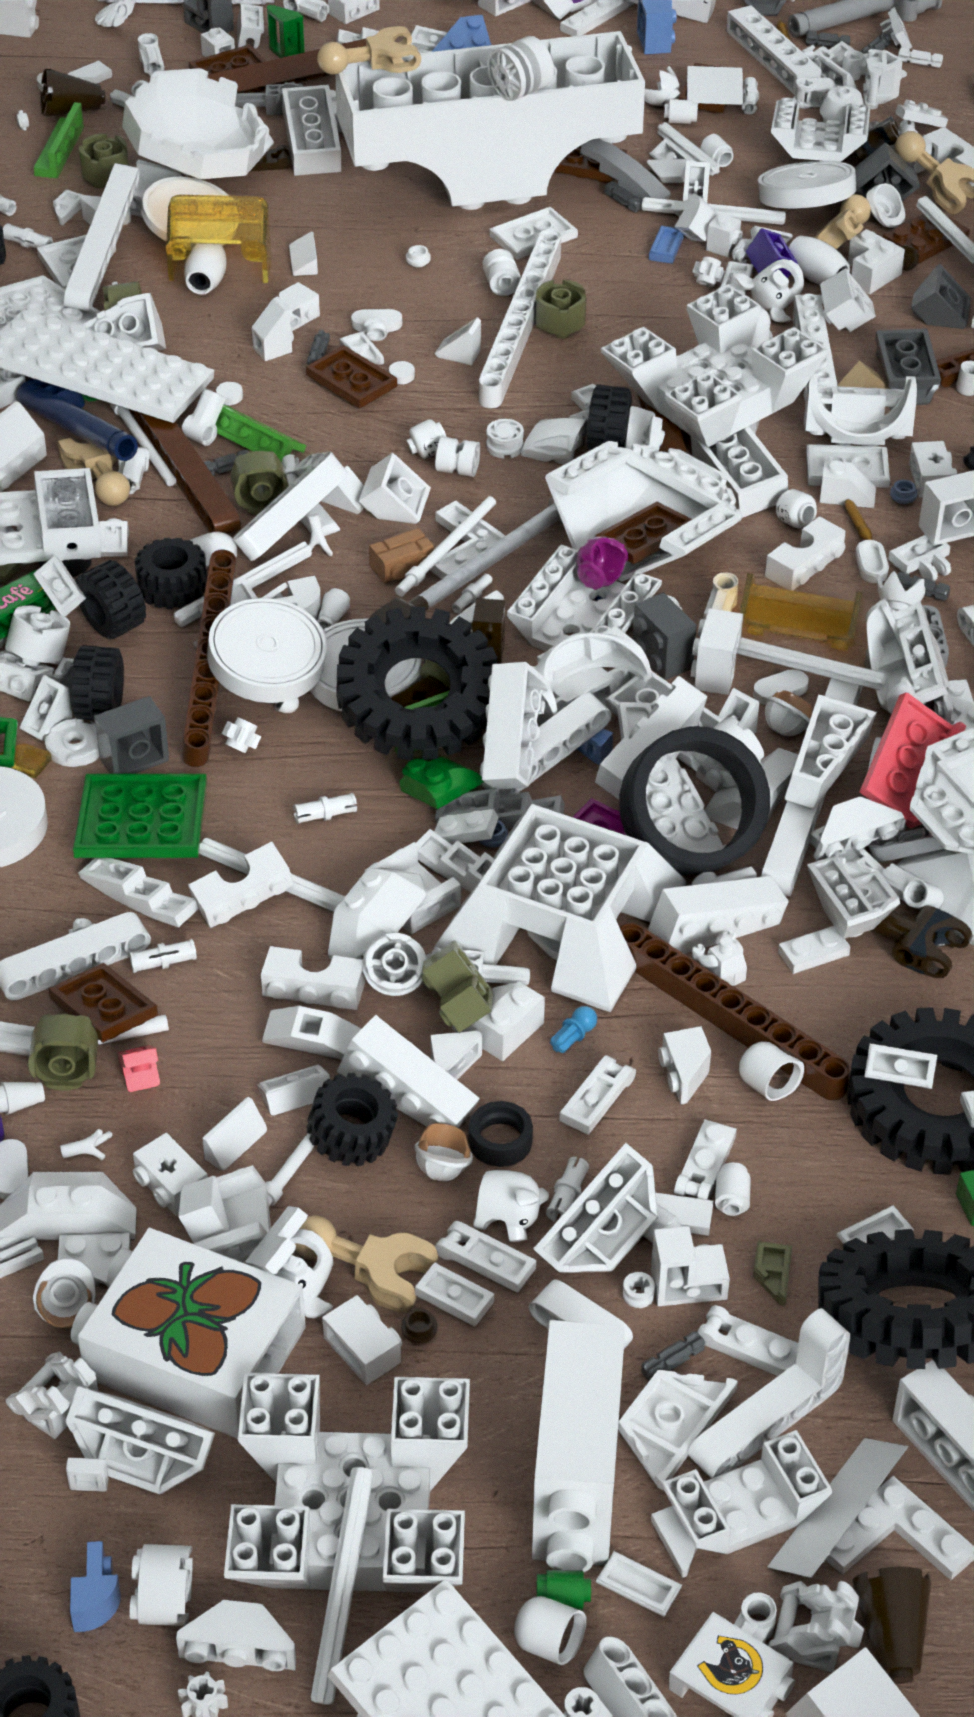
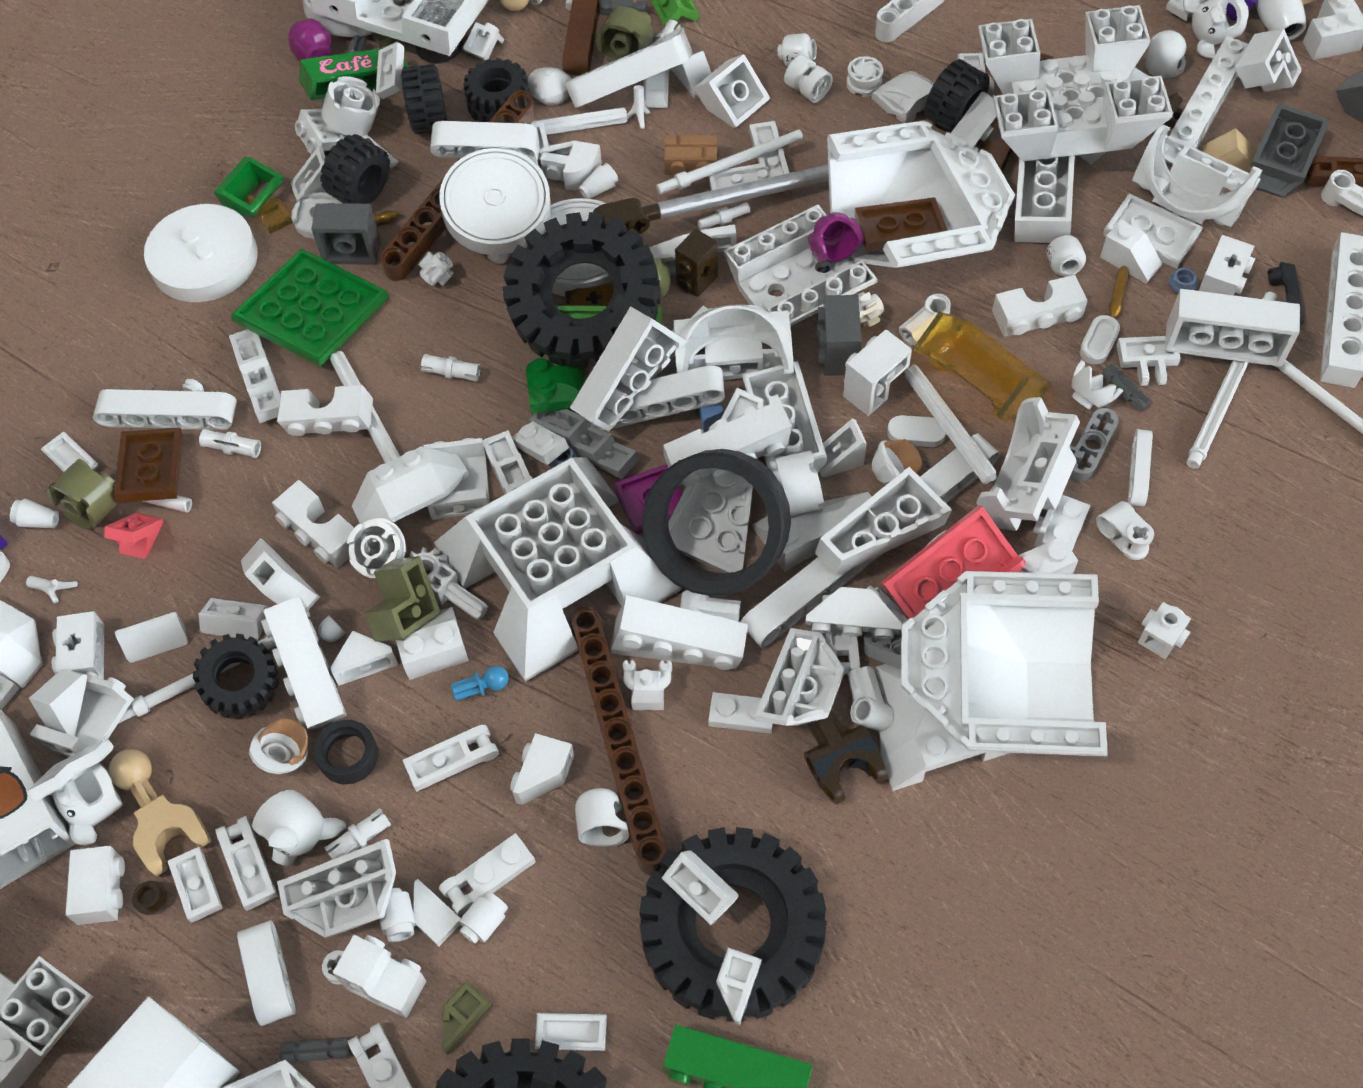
camera: 35 degrees right, 15 degrees up
(202, 605) = (461, 138): none -> white beam

